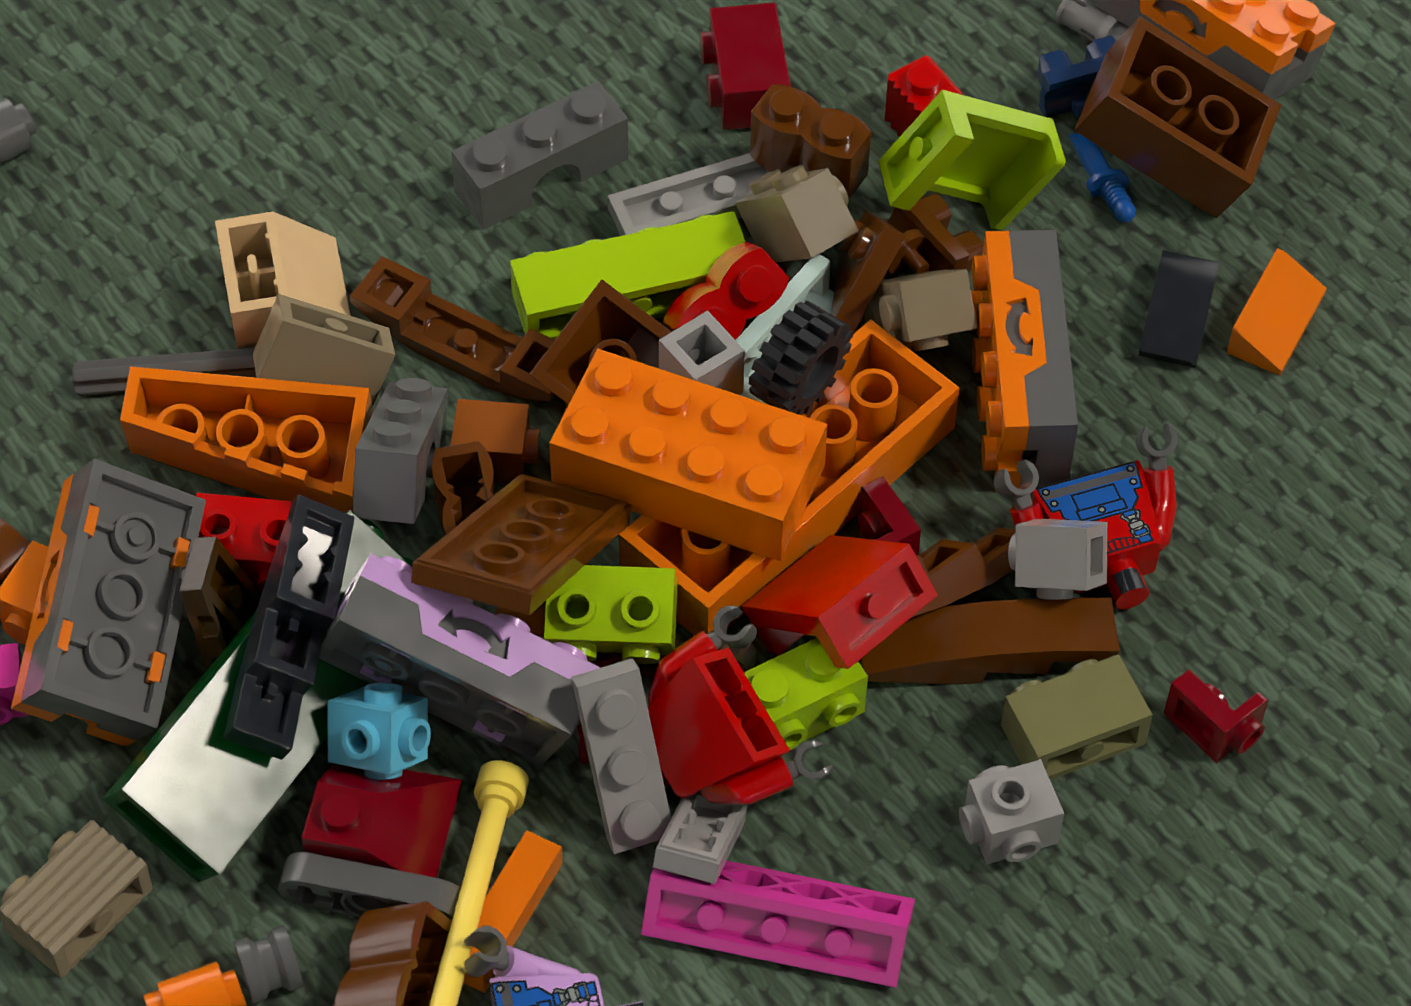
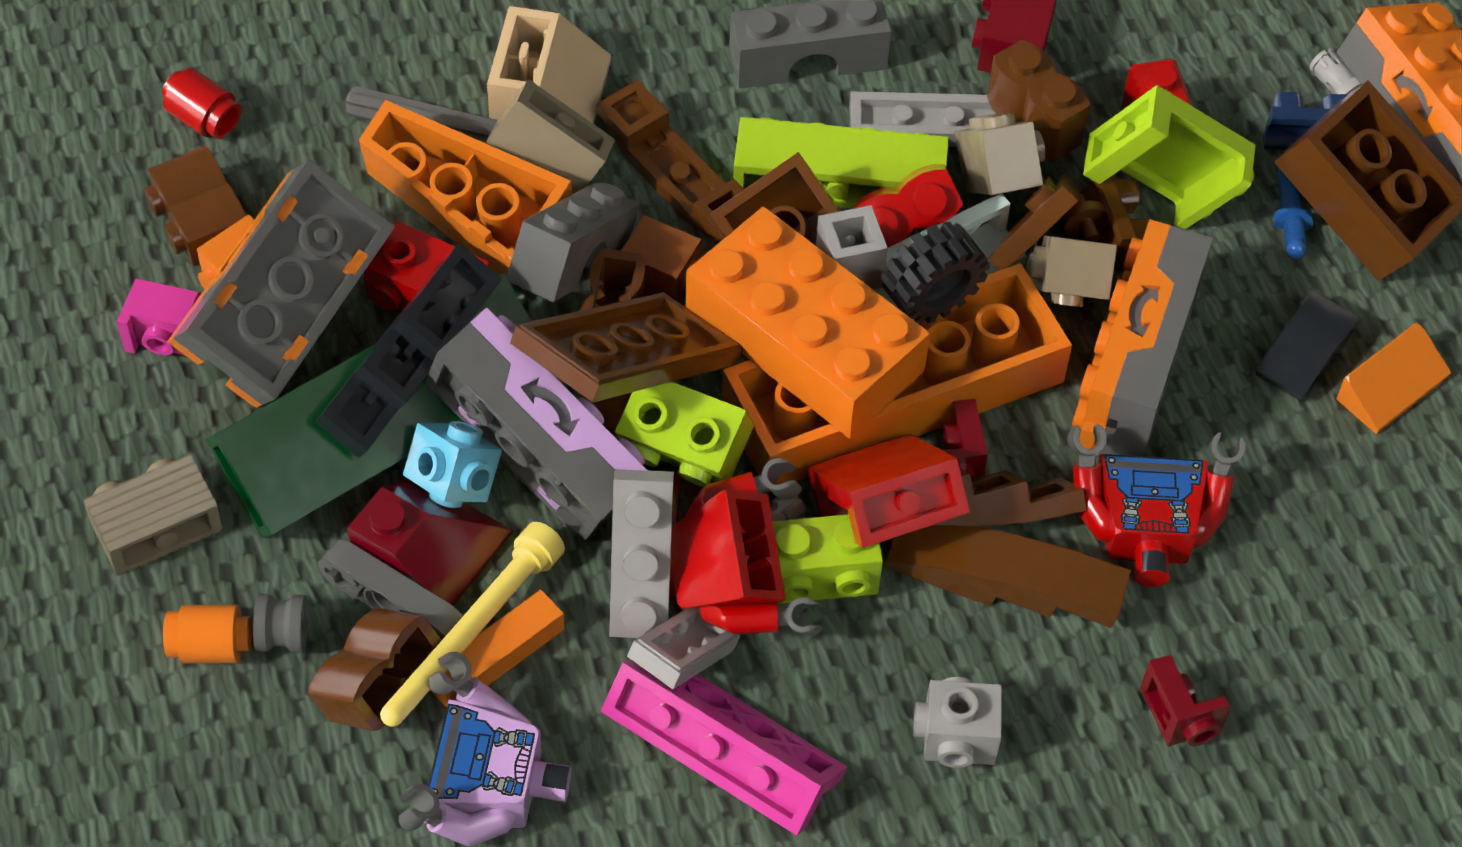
camera: 20 degrees right, 0 degrees up
(216, 596) = (367, 305): dark brown wing -> none
(1059, 556) = (1095, 517): light grey brick -> none
(1077, 717) = (1055, 663): olive brick -> none

